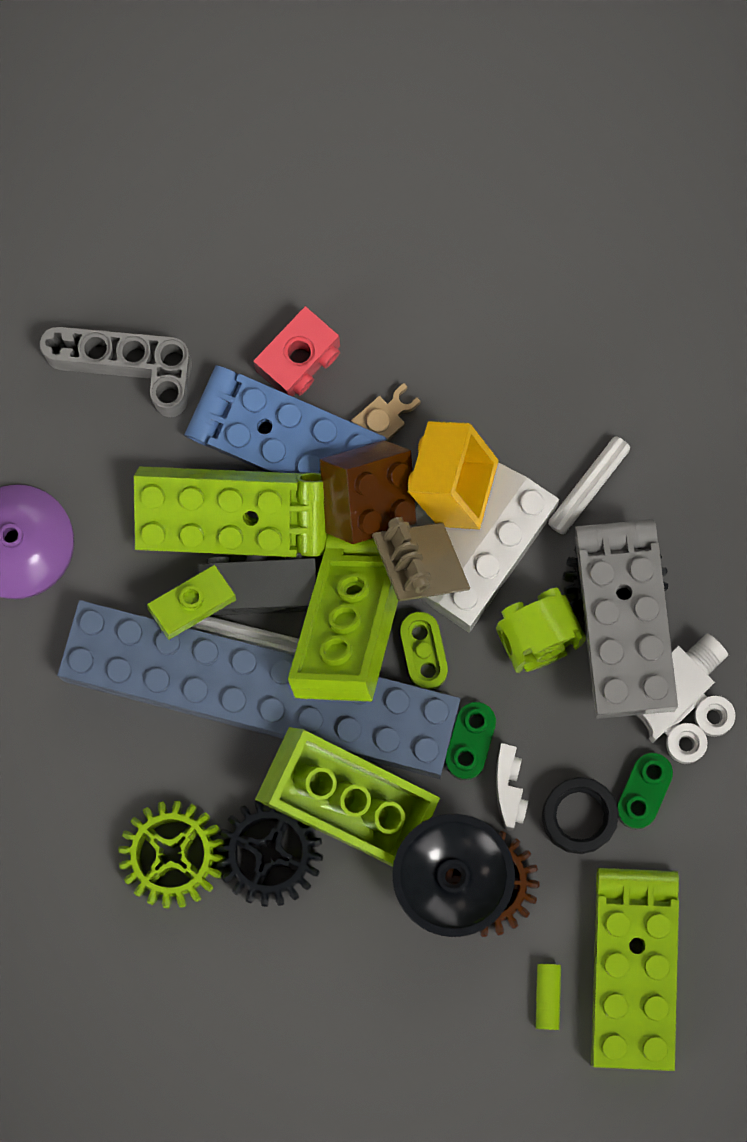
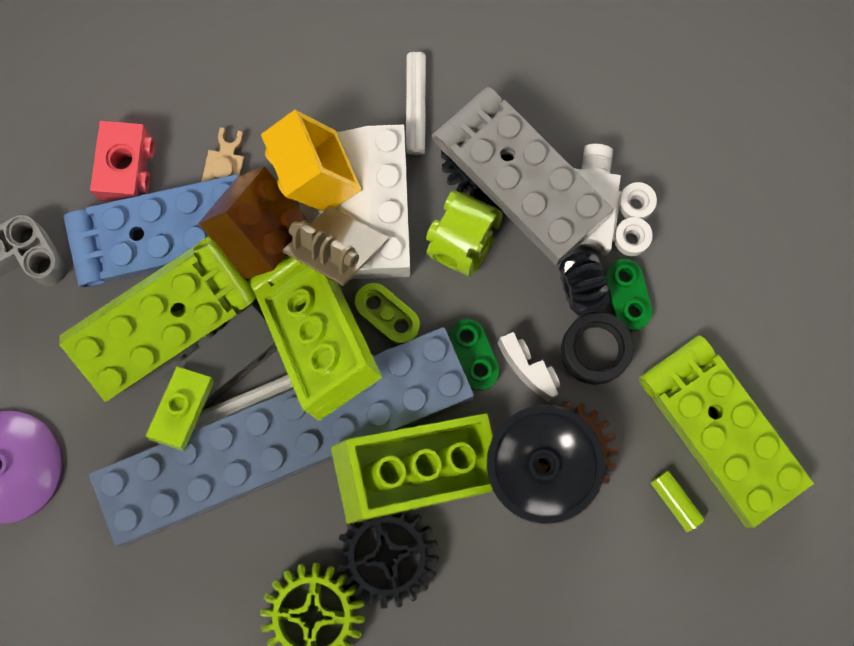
camera: 45 degrees left, 0 degrees up
(611, 751) = (584, 282): none -> black gear

